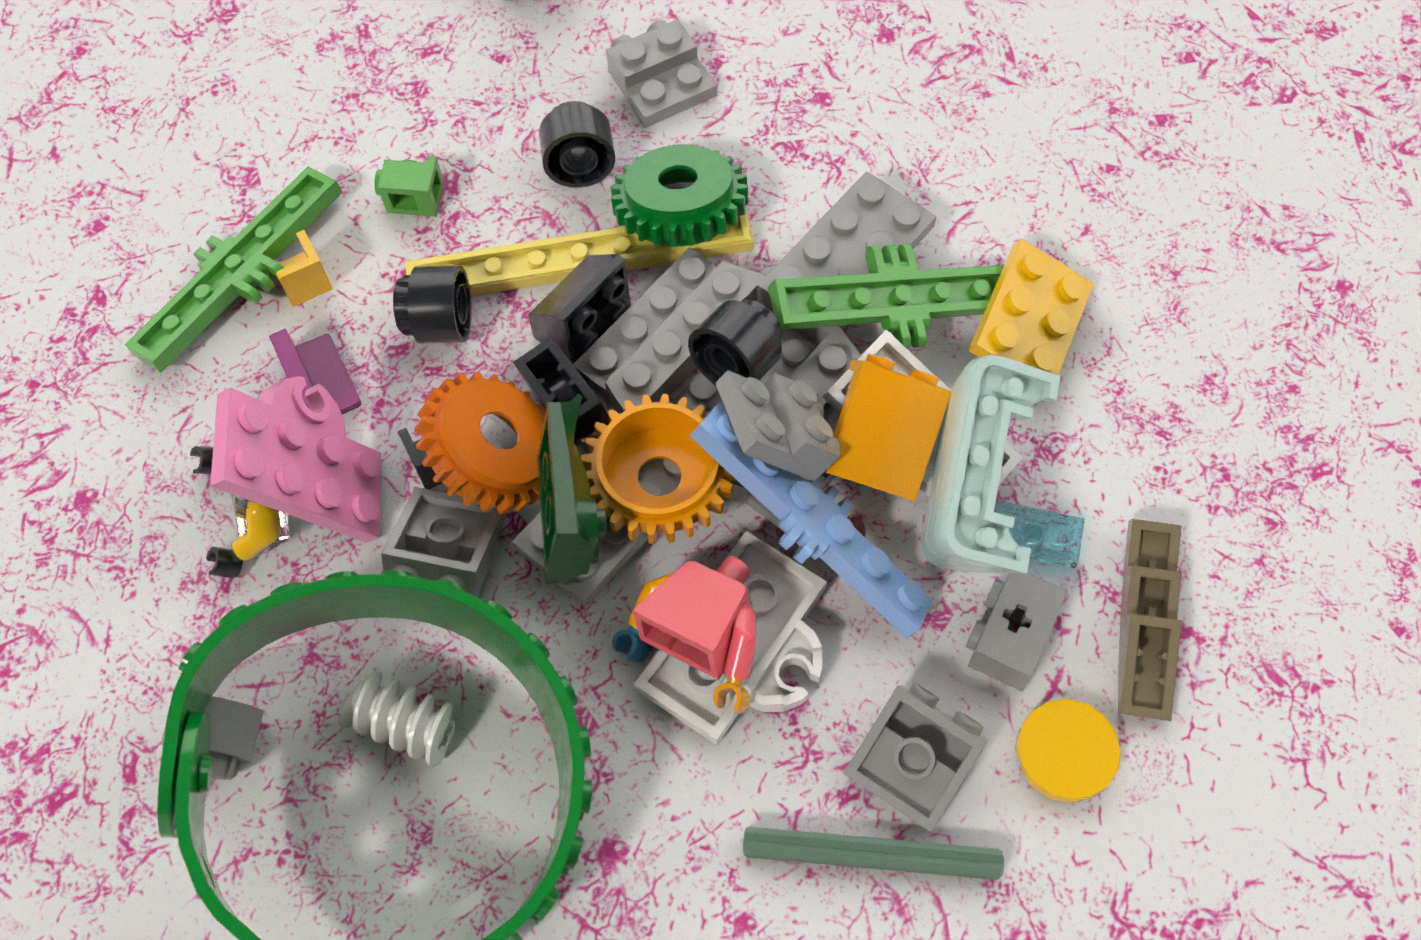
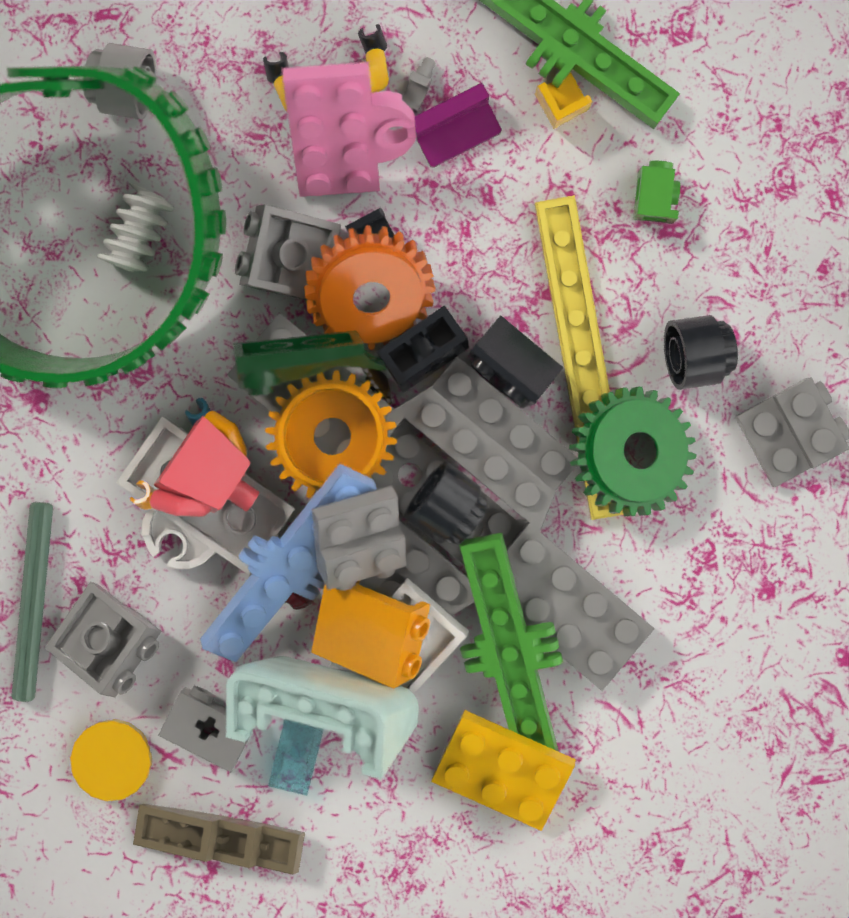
camera: 85 degrees right, 25 degrees up
(434, 304) = (516, 228): black piece -> none

